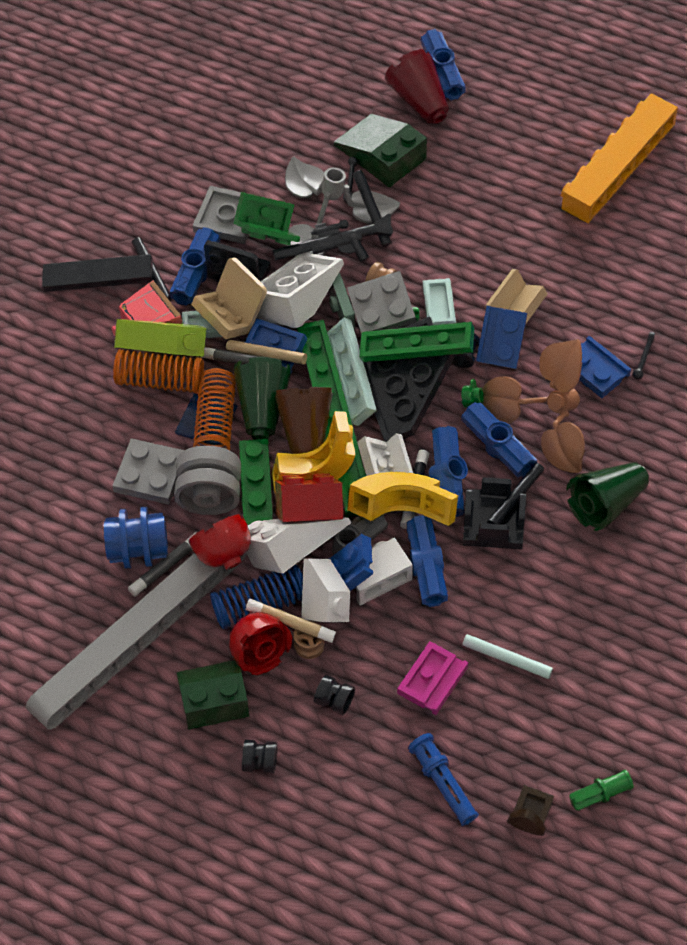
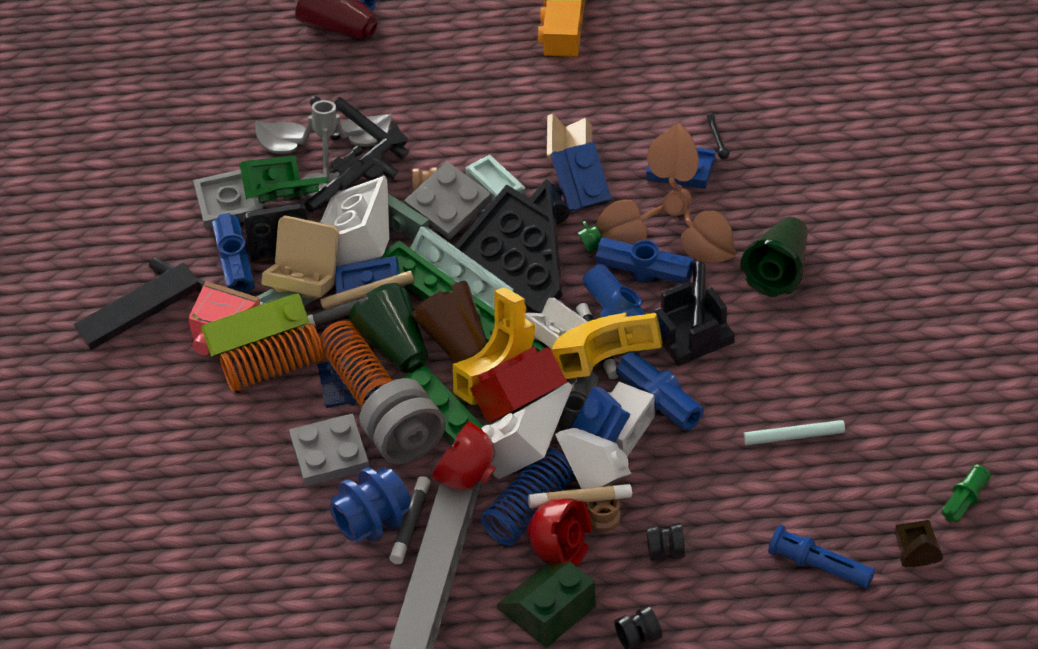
camera: 30 degrees left, 10 degrees down
(384, 147) = (338, 71): dark green slope -> none
(417, 342) = (513, 209): green plate -> none
(432, 678) = (743, 482): dark pink plate -> none

